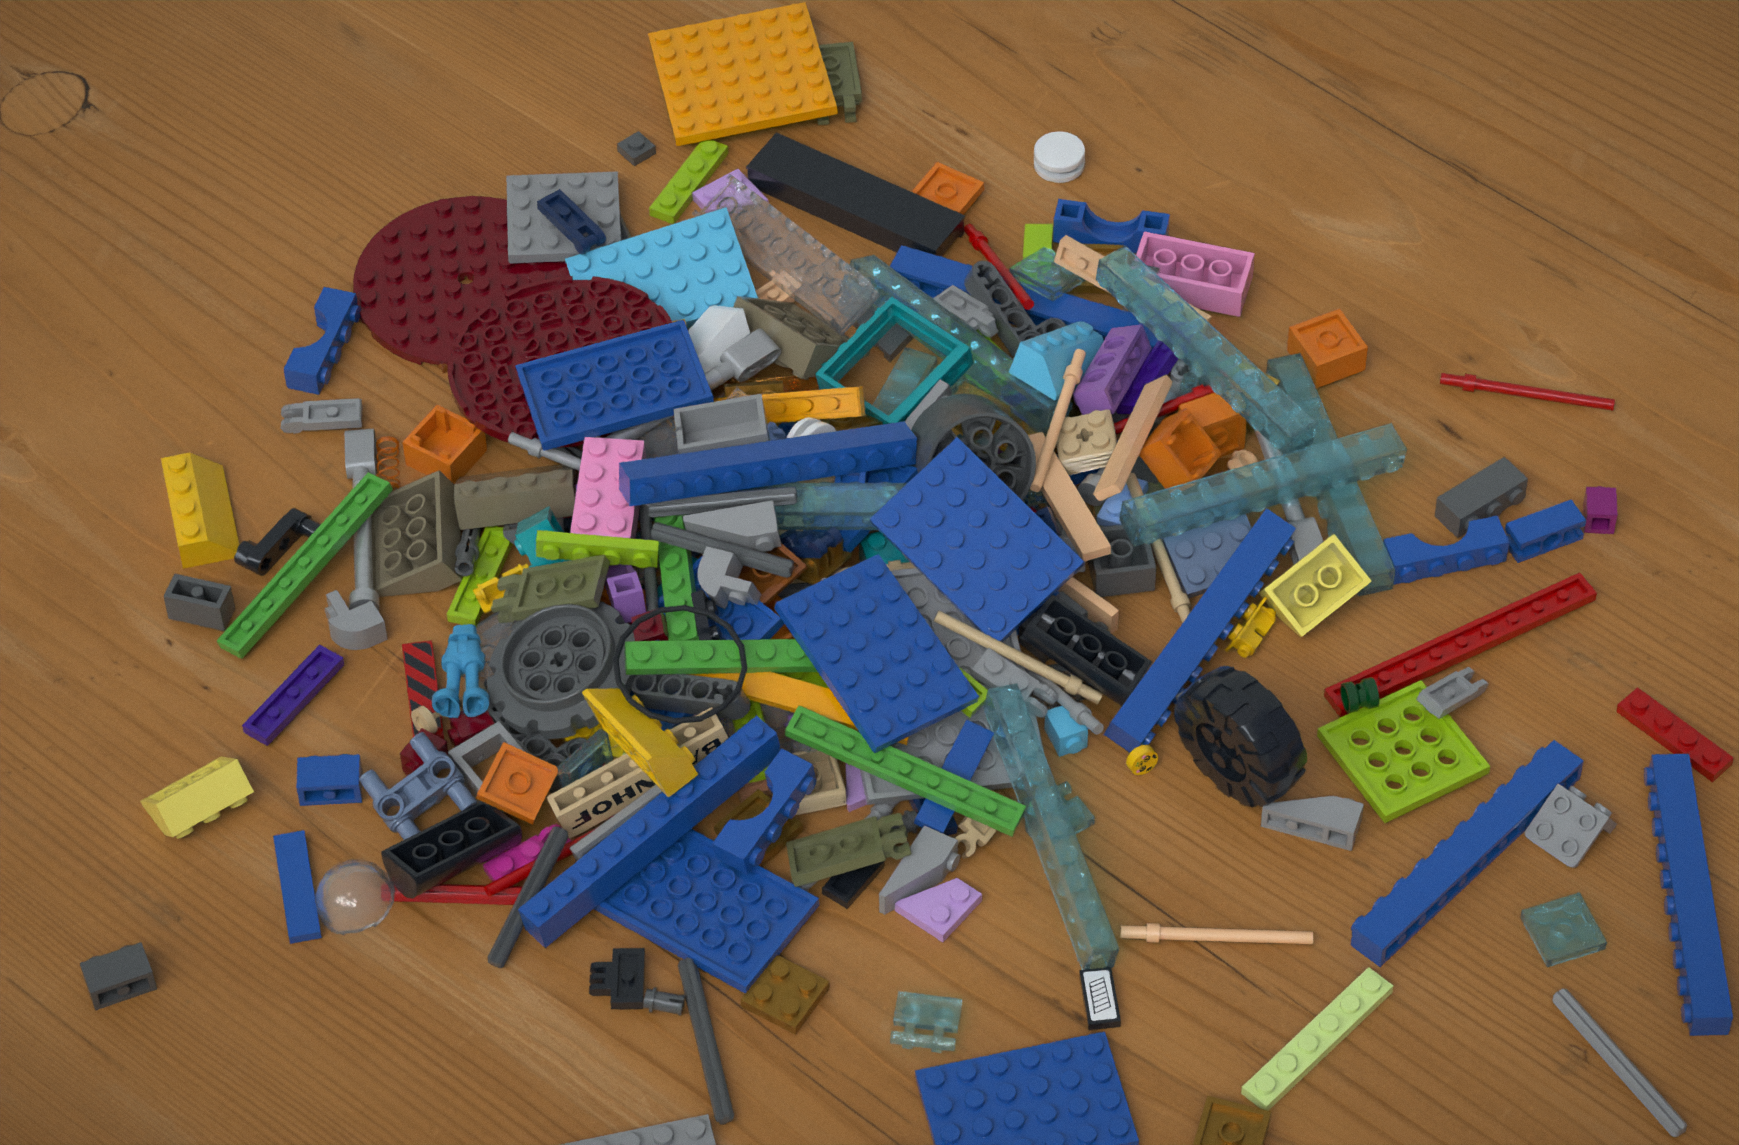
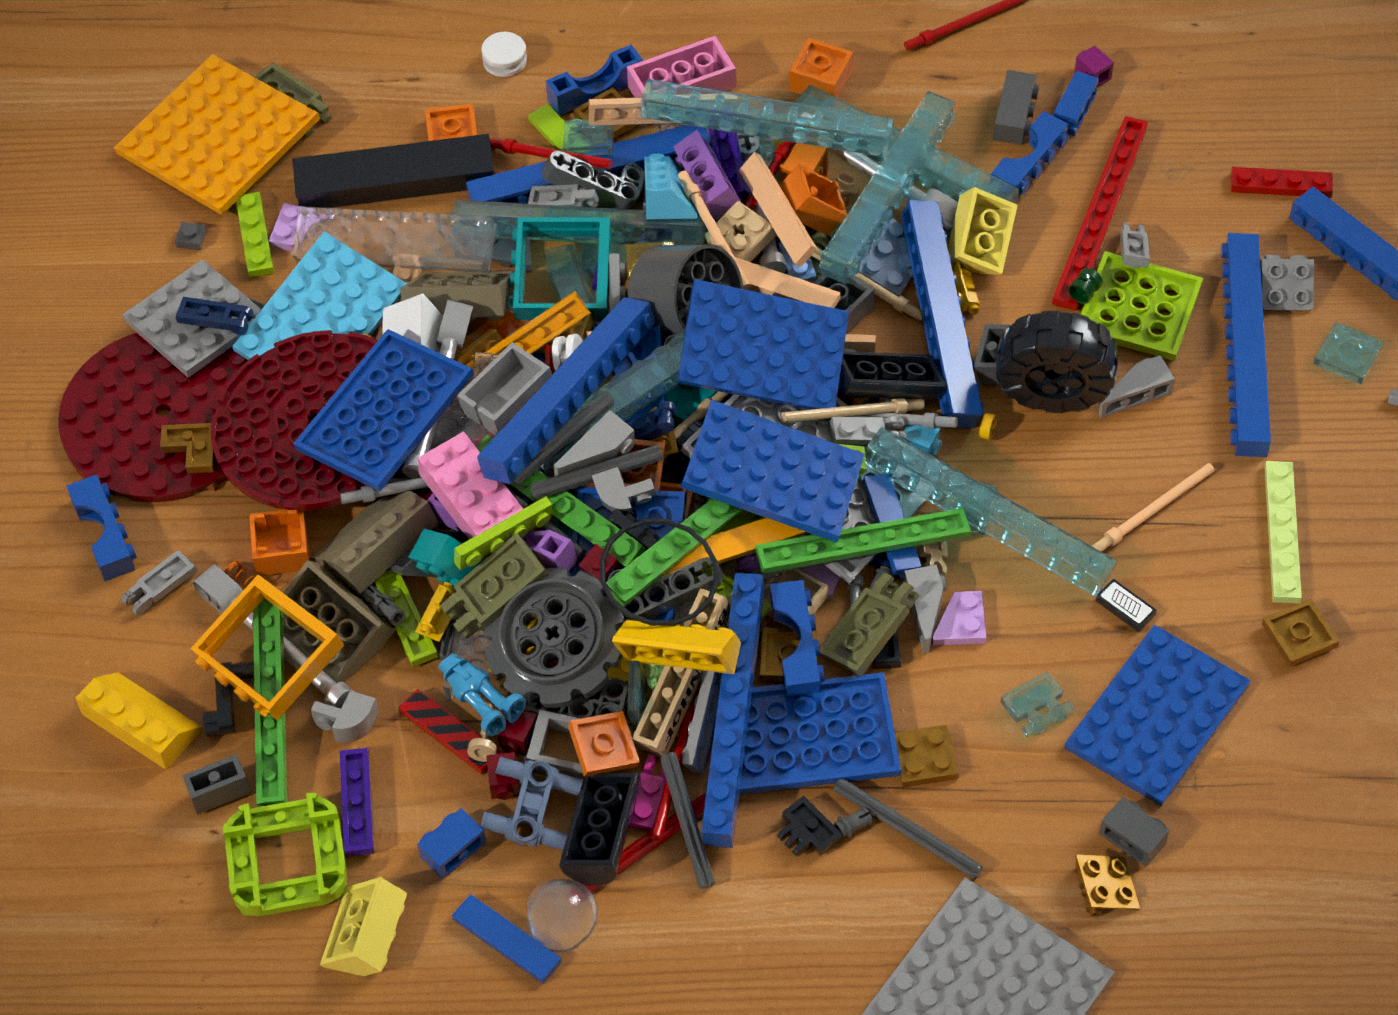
camera: 40 degrees left, 5 degrees up
(204, 740) = (277, 819): none -> lime plate
(322, 479) = (234, 617): none -> light orange window
(453, 315) = (192, 439): none -> pearl gold plate

